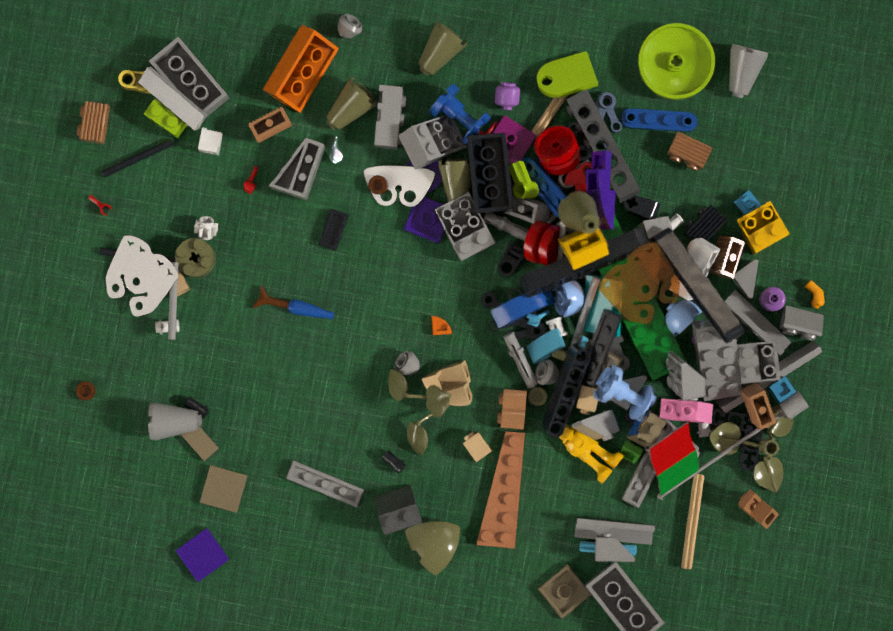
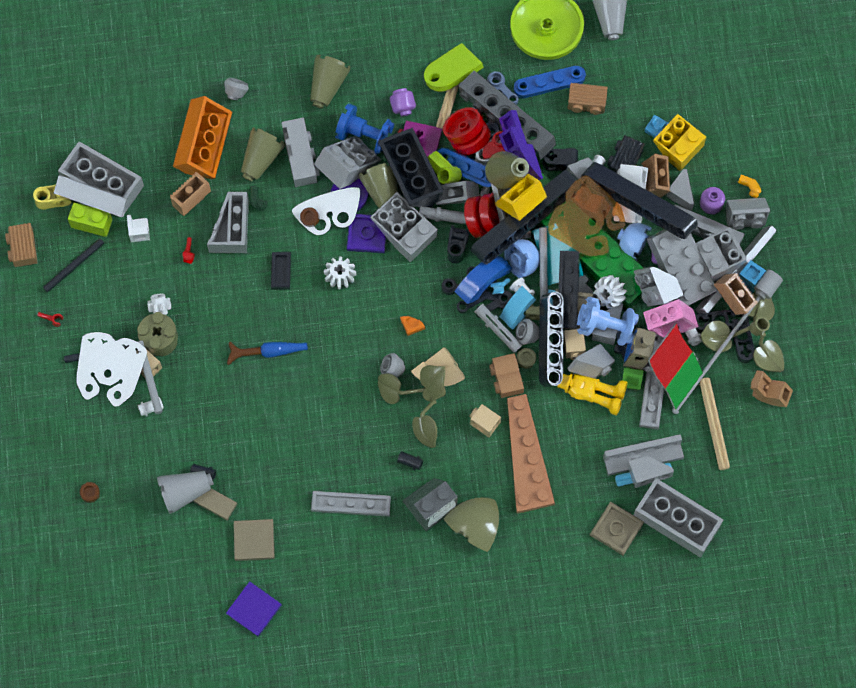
camera: 20 degrees left, 15 degrees down
(381, 253) = (346, 276): none -> white gear
(638, 364) = (610, 291): none -> white gear

